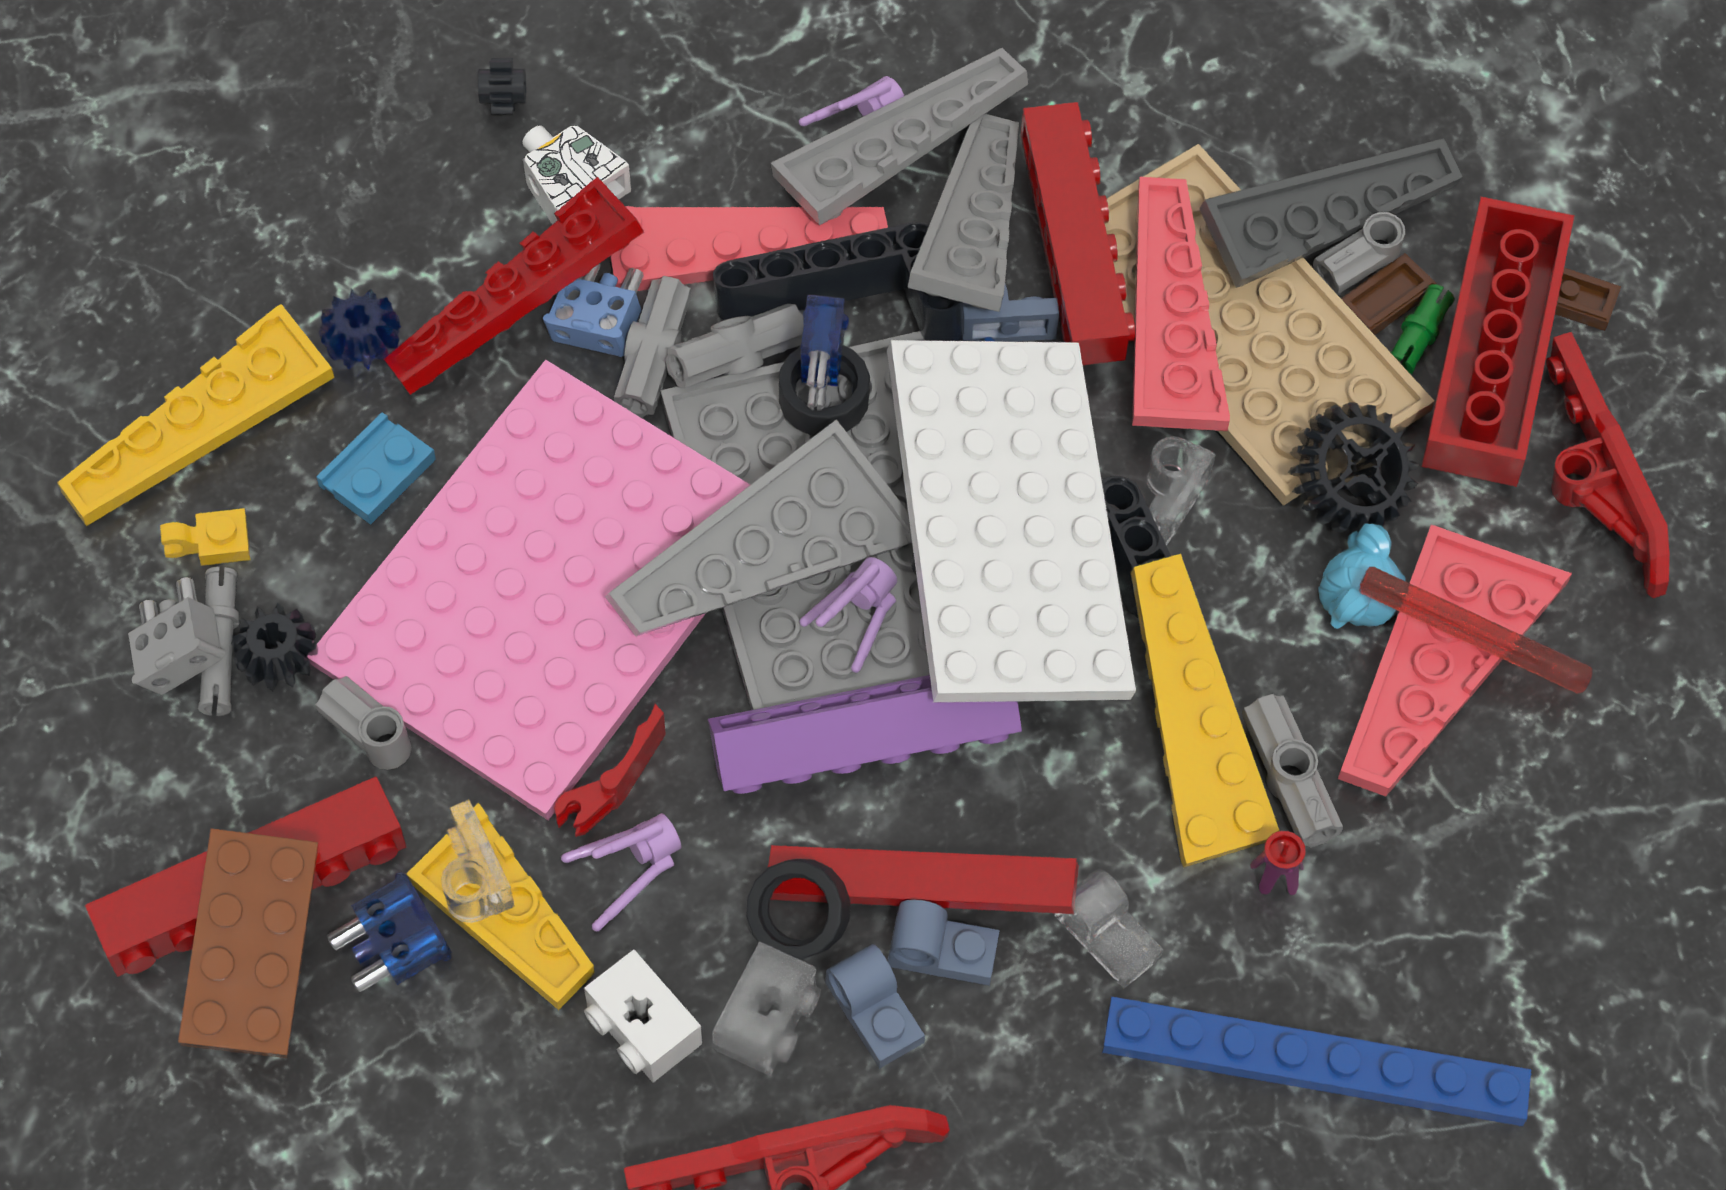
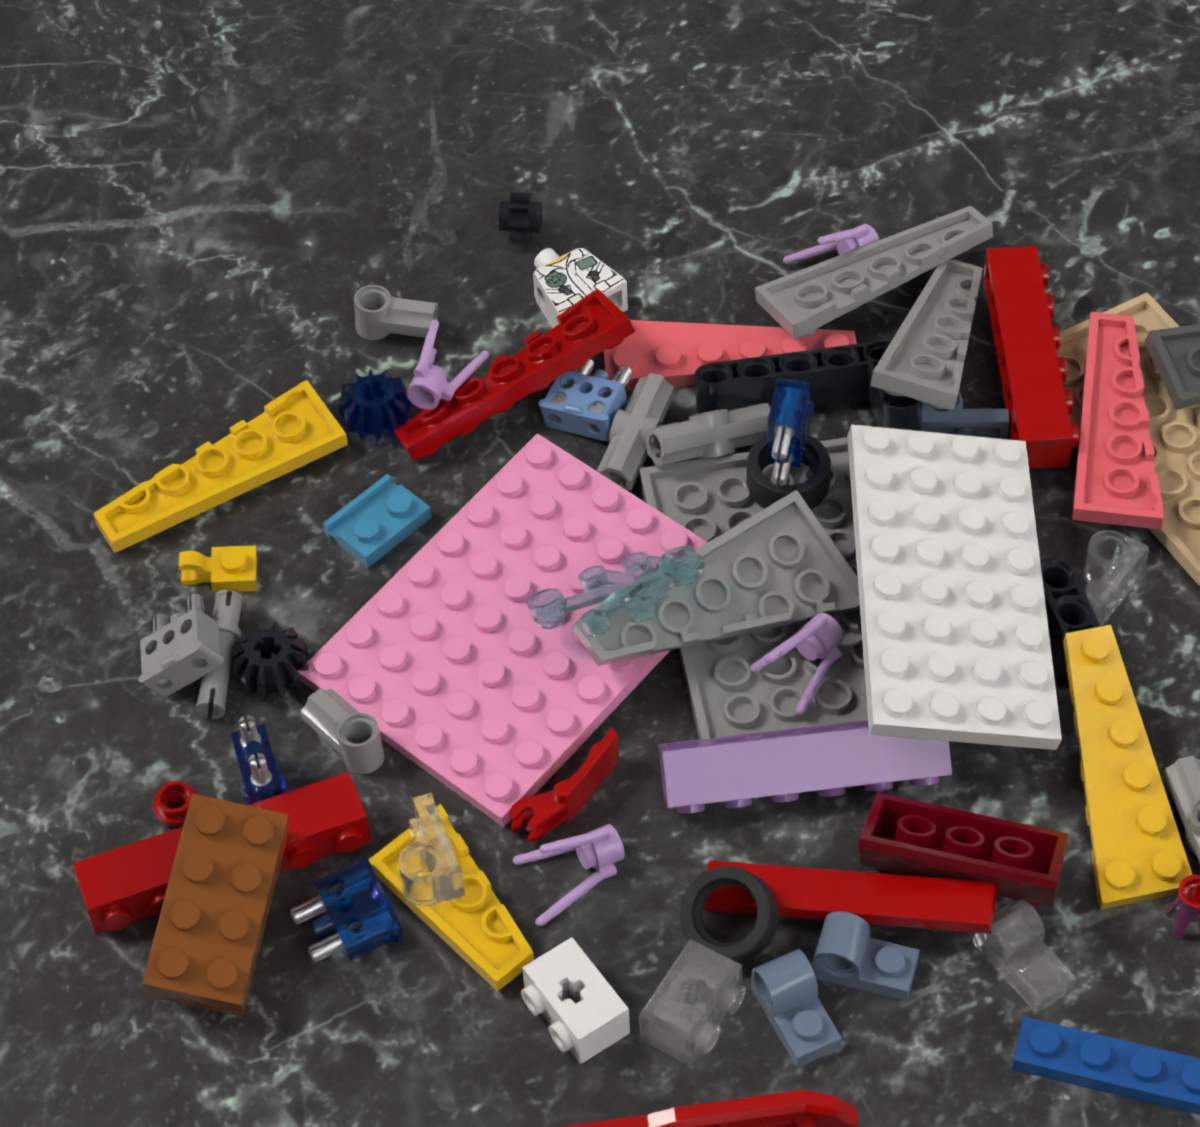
camera: 10 degrees right, 10 degrees down
(186, 809) = (168, 796): none -> red plate
(279, 786) = (256, 762): none -> clear blue piece
(369, 216) = (380, 314): none -> light grey piece
(420, 300) = (430, 380): none -> lavender plant
(711, 526) = (615, 588): none -> clear light blue plant
(1039, 817) = (963, 845): none -> dark red slope

